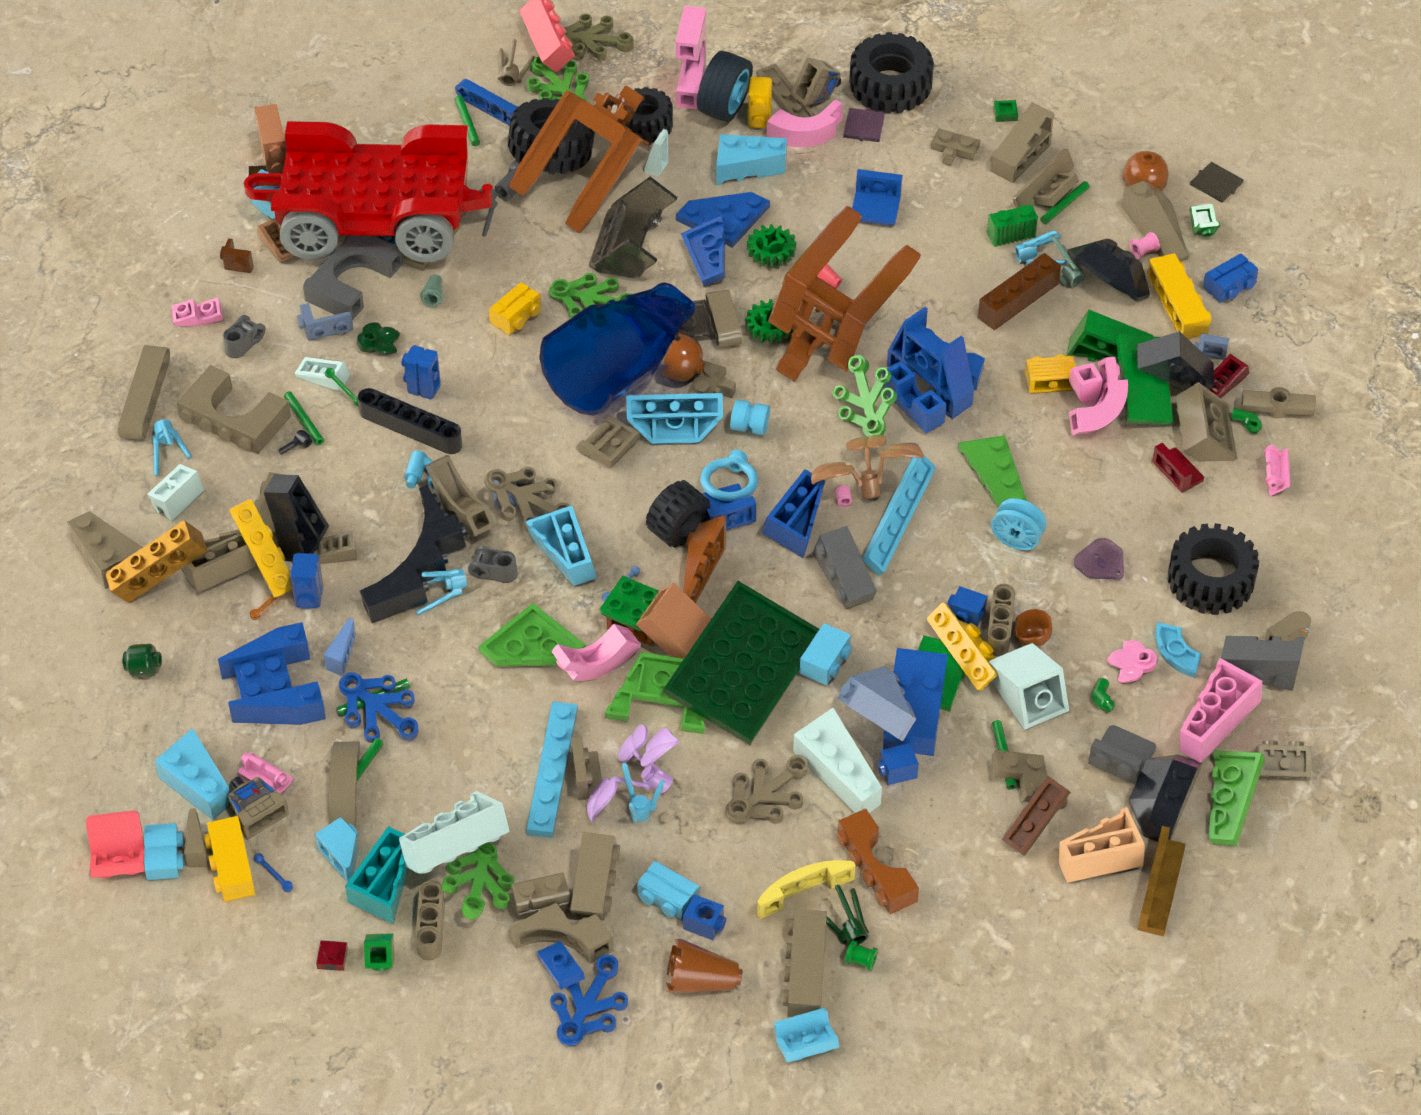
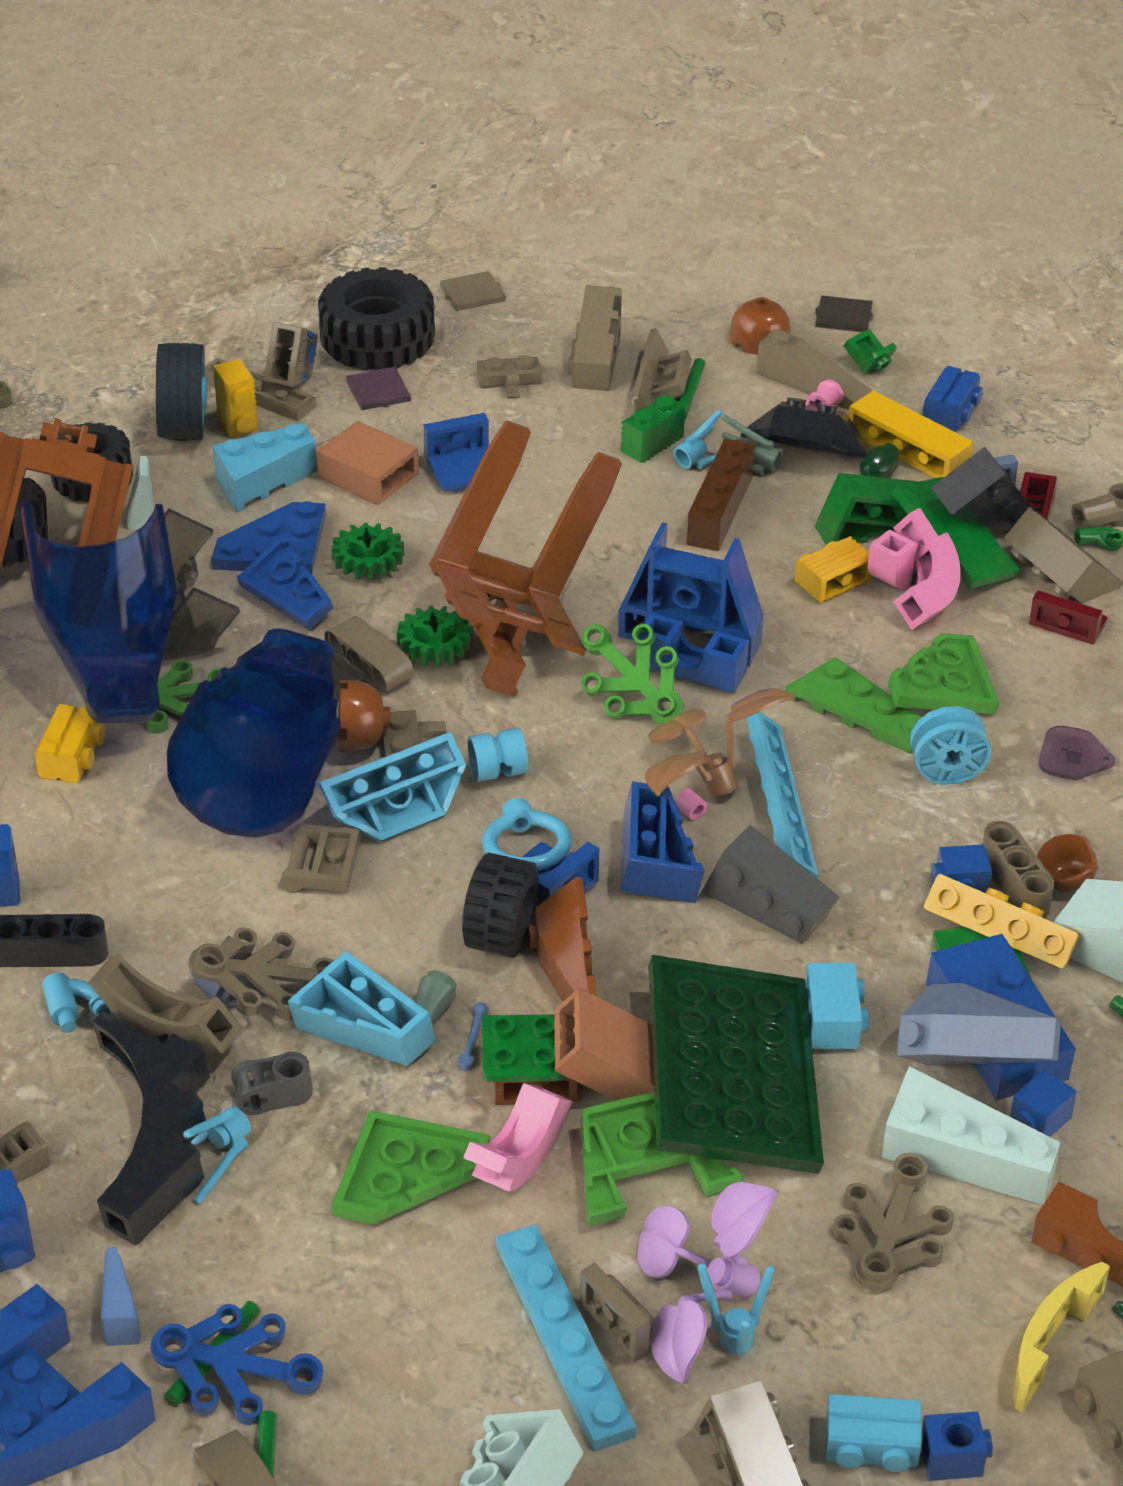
camera: 30 degrees left, 10 degrees down
(571, 232) = (107, 614): none -> clear blue windscreen
(610, 553) = (435, 993): none -> sand green cone
(692, 50) = (114, 347): bright pink arch -> none
(806, 131) = (318, 411): bright pink arch -> none
(814, 180) = (367, 462): none -> nougat brick
(978, 70) = (472, 290): none -> dark tan piece
(1005, 110) = (540, 320): green tile -> none
(1058, 477) = (945, 676): none -> bright green plate
(1141, 309) = (880, 461): none -> dark green plant

